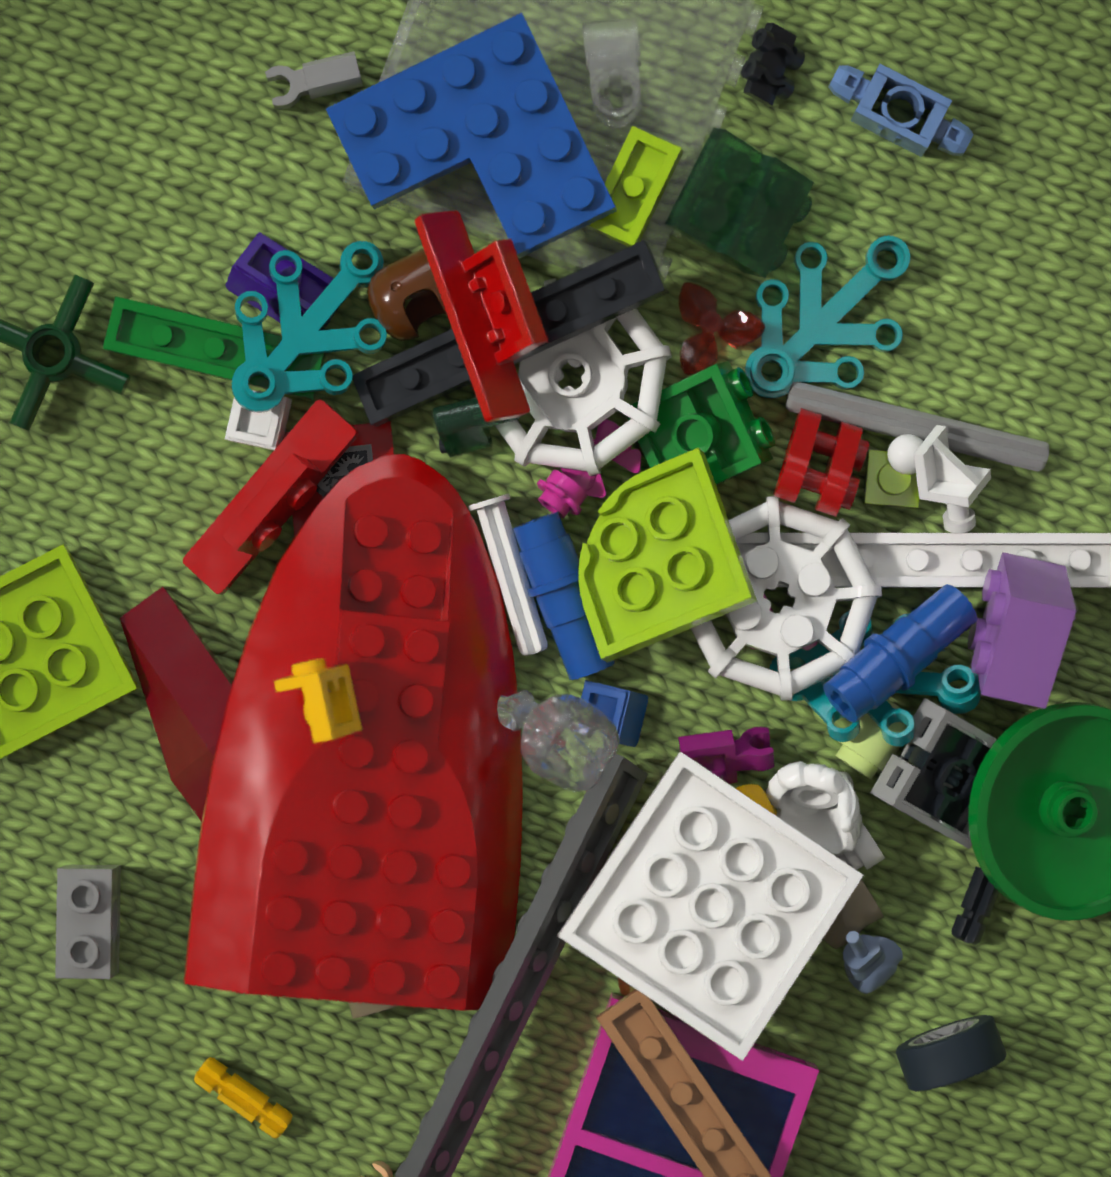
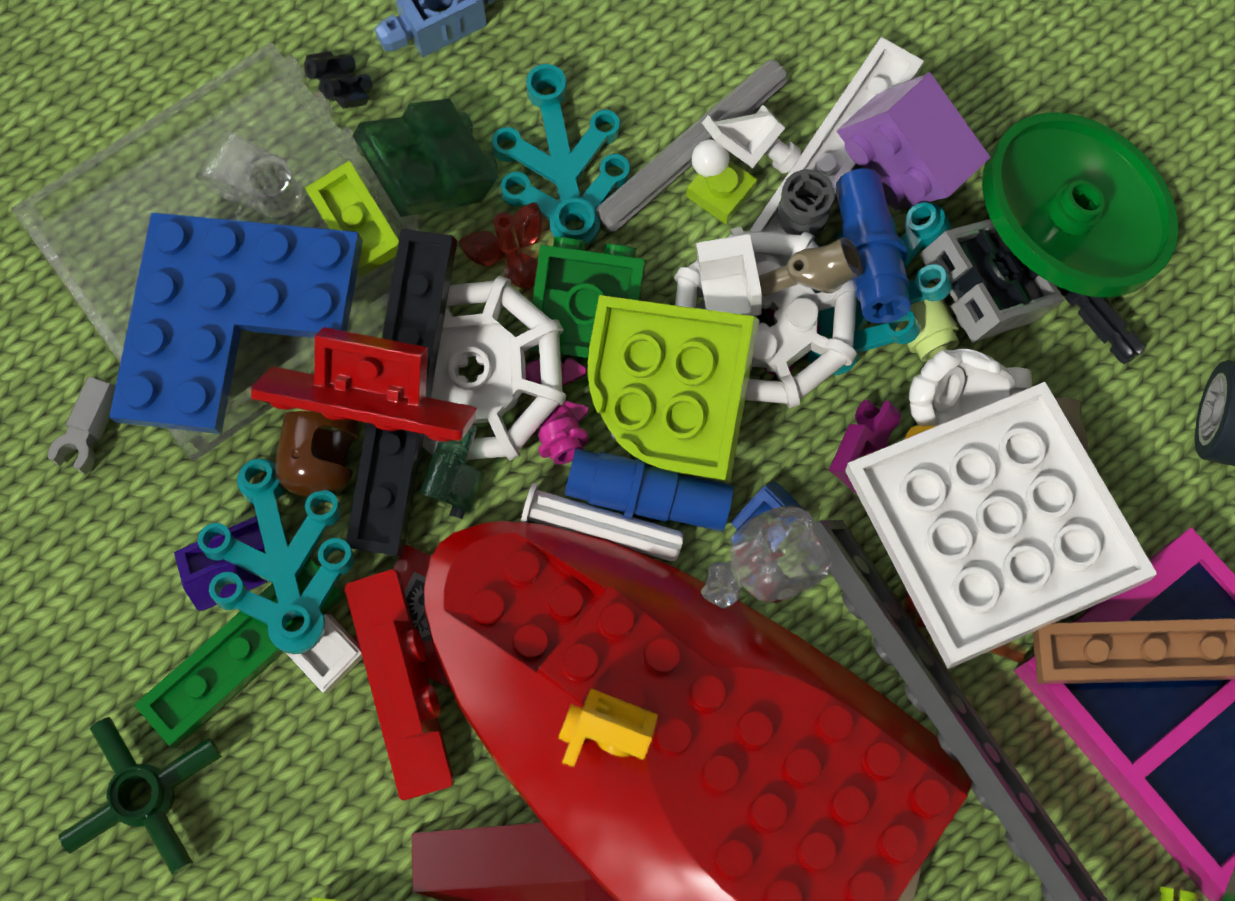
camera: 55 degrees left, 15 degrees down
(782, 551) = (729, 275): none -> white panel
(833, 622) = (818, 268): none -> dark tan piece
(845, 455) = (677, 218): red brick -> none
(870, 960) = (1114, 435): sand blue piece -> none
(900, 574) = (799, 213): none -> dark grey wheel

